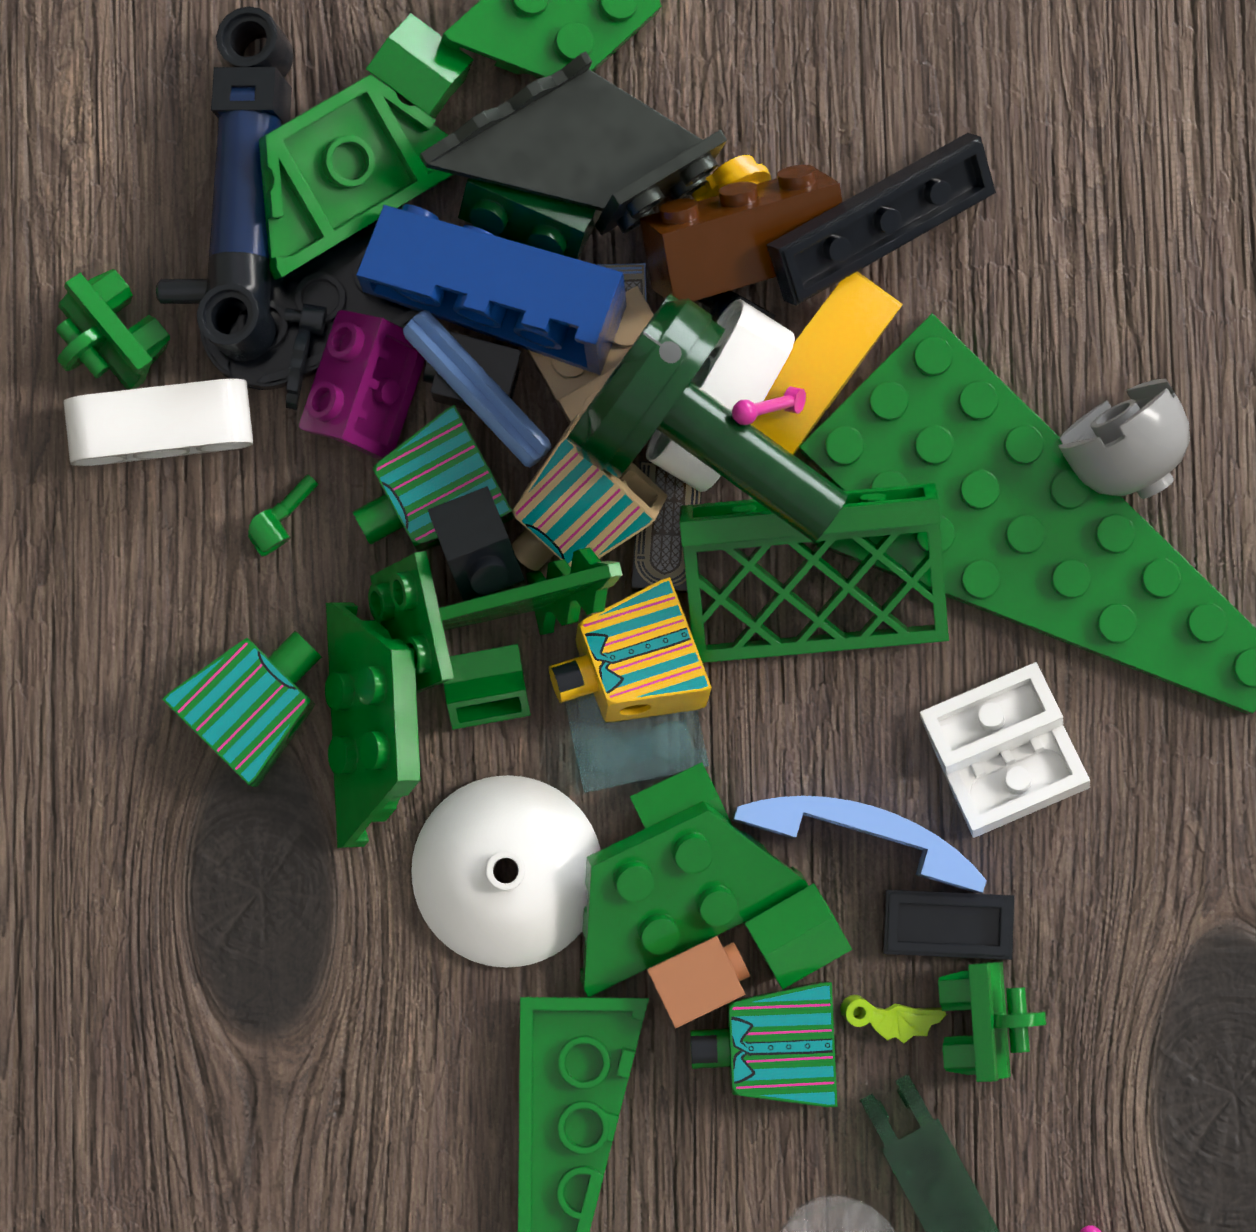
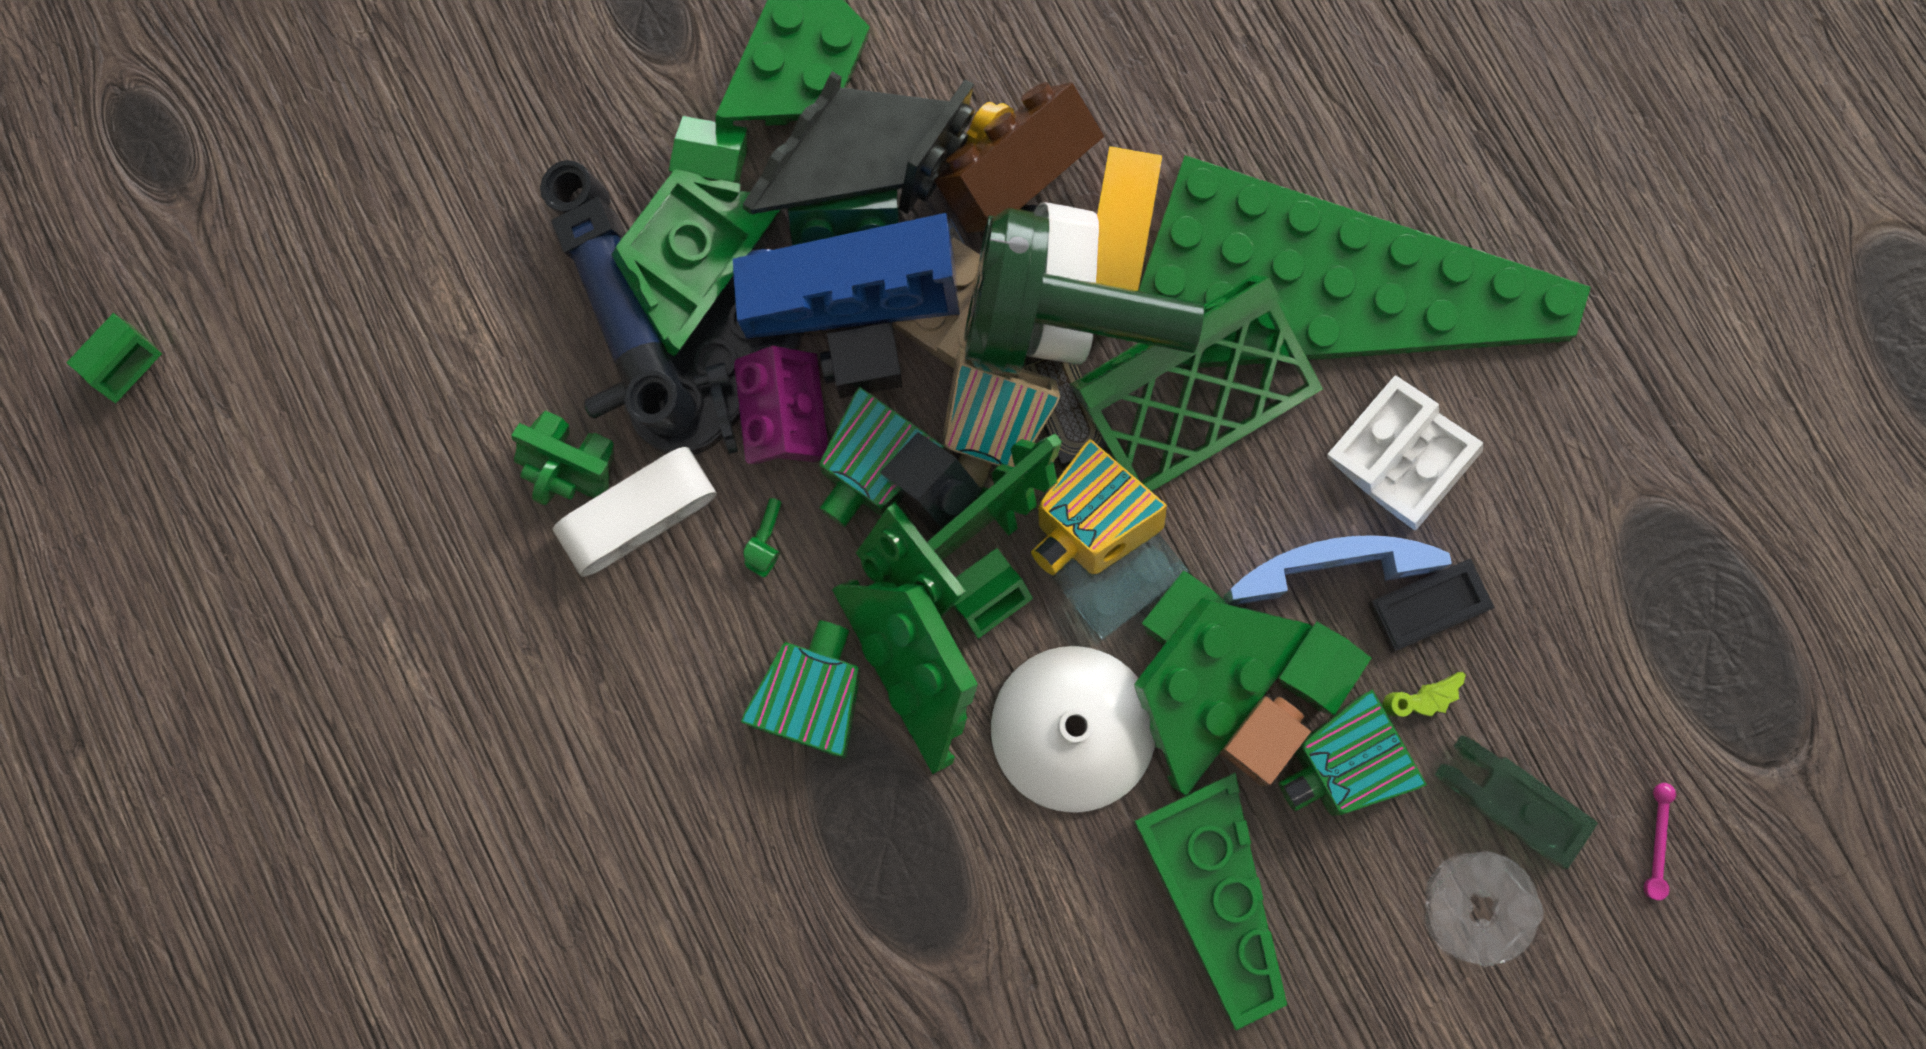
camera: 25 degrees left, 5 degrees down
(477, 388) = (872, 364): medium blue axle -> none
(746, 412) = (1095, 273): dark pink hinge -> none
(881, 219) = (1114, 99): black tile -> none
(983, 993) = (1511, 688): green hips -> none
(1131, 443) = (1385, 176): light grey cylinder -> none

